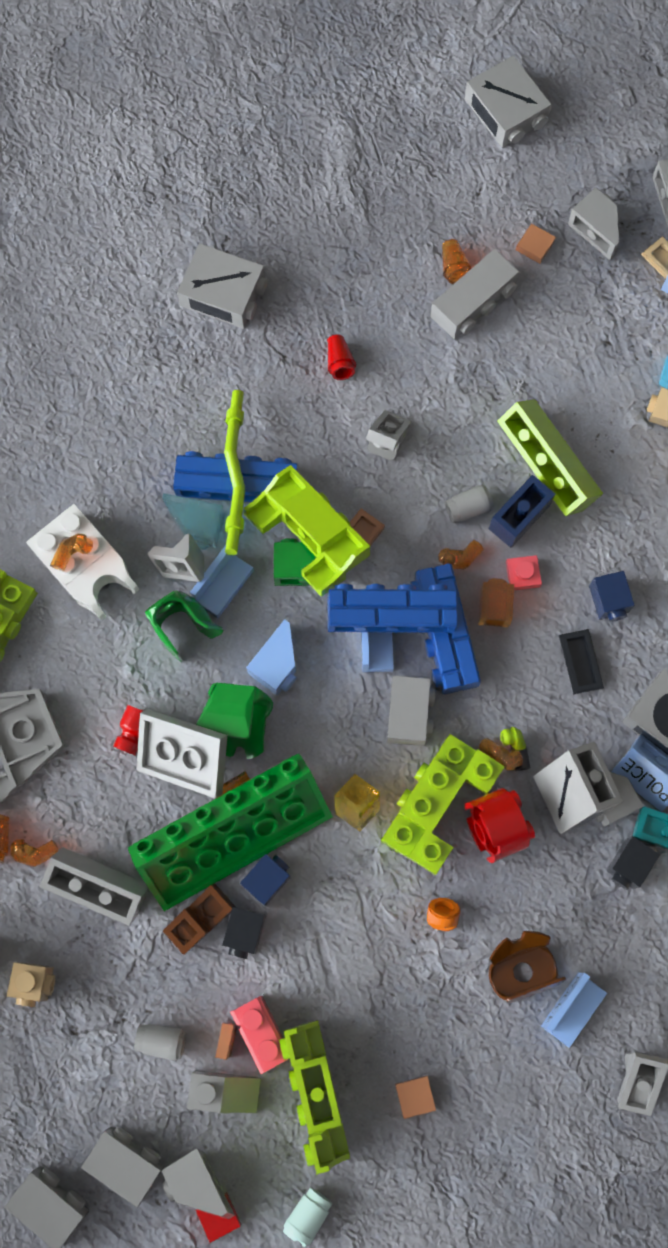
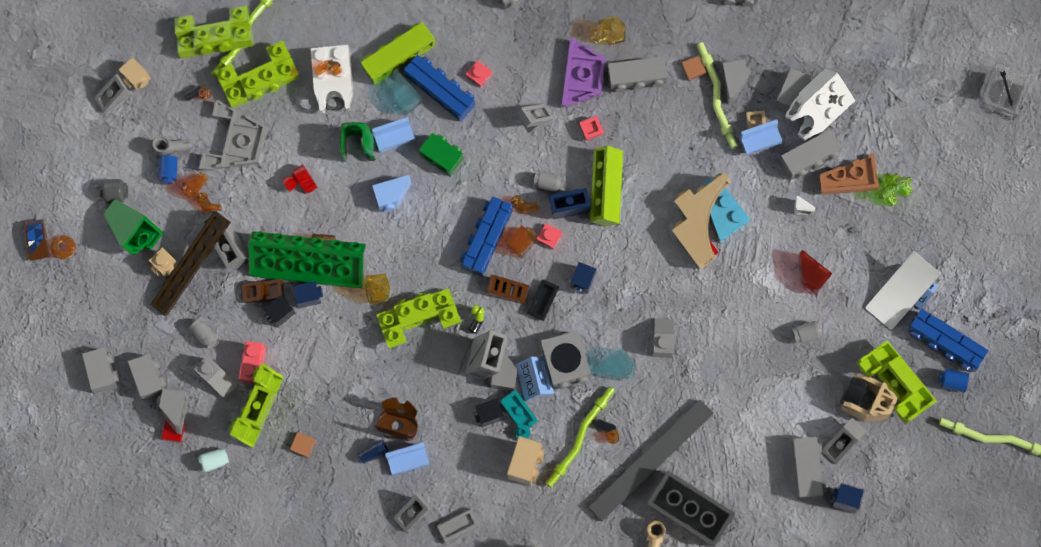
camera: 40 degrees right, 0 degrees up
(70, 955) = (190, 263): none -> dark brown tile
(147, 472) = (398, 53): none -> lime brick
(181, 562) = (380, 110): light grey slope -> none
(181, 753) = (310, 204): plate -> none
(226, 1040) = (234, 354): nougat tile -> none
(234, 523) = (418, 109): lime bar -> none
(239, 714) = (349, 206): green piece -> none
(272, 428) = (479, 73): none -> coral plate
(315, 523) = (458, 155): lime bracket -> none
(340, 359) = (540, 60): red cone -> none
(367, 526) = (485, 158): nougat tile -> none
(377, 651) = (448, 217): light blue panel -> none
(392, 609) = (462, 206): blue brick -> none
(401, 262) = (609, 30): none -> clear yellow brick
(406, 340) = (583, 74): none -> medium lavender wing
(409, 710) = (437, 263): light grey brick -> none
(443, 914) = (379, 371): orange tile -> none
(454, 261) = (641, 48): clear orange cone -> none
(470, 399) = (591, 128): none -> coral plate
(499, 824) = (436, 346): red brick -> none
(500, 754) = (464, 316): clear orange arm -> none
(503, 691) = (498, 294): none -> reddish brown slope
(521, 1033) = (373, 451): none -> dark blue cone
(635, 289) = (707, 62): none -> yellowish green bar

